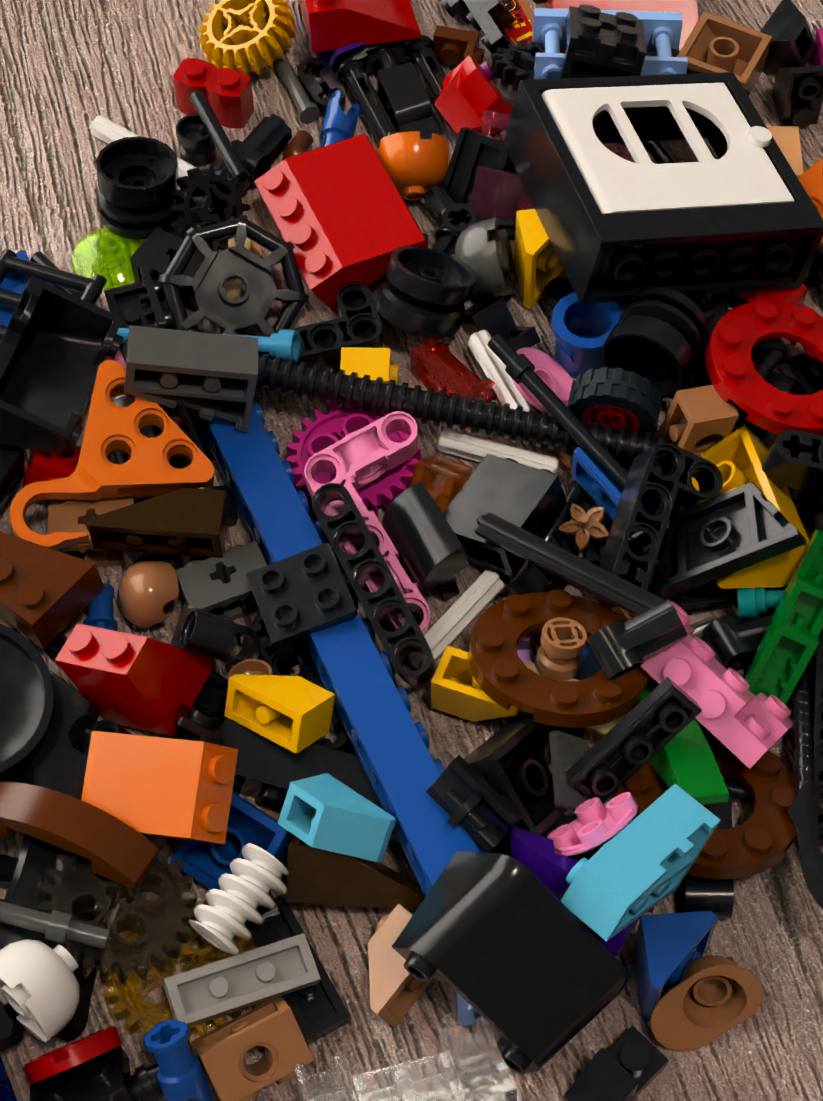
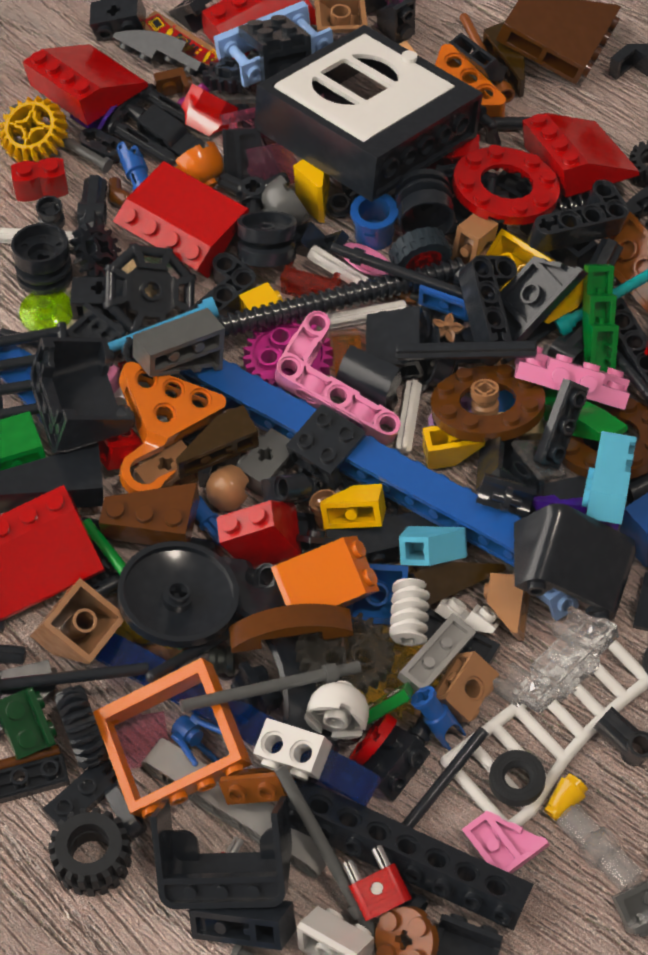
camera: 30 degrees left, 0 degrees up
(119, 1014) = (390, 702): none -> green tile
(218, 136) = (69, 203): black bar -> none
(339, 959) = (480, 618): none -> white slope
(369, 563) = (355, 401): black beam -> none
(595, 824) = (570, 476): bright pink dish -> none
(626, 644) = (528, 373): black piece -> none

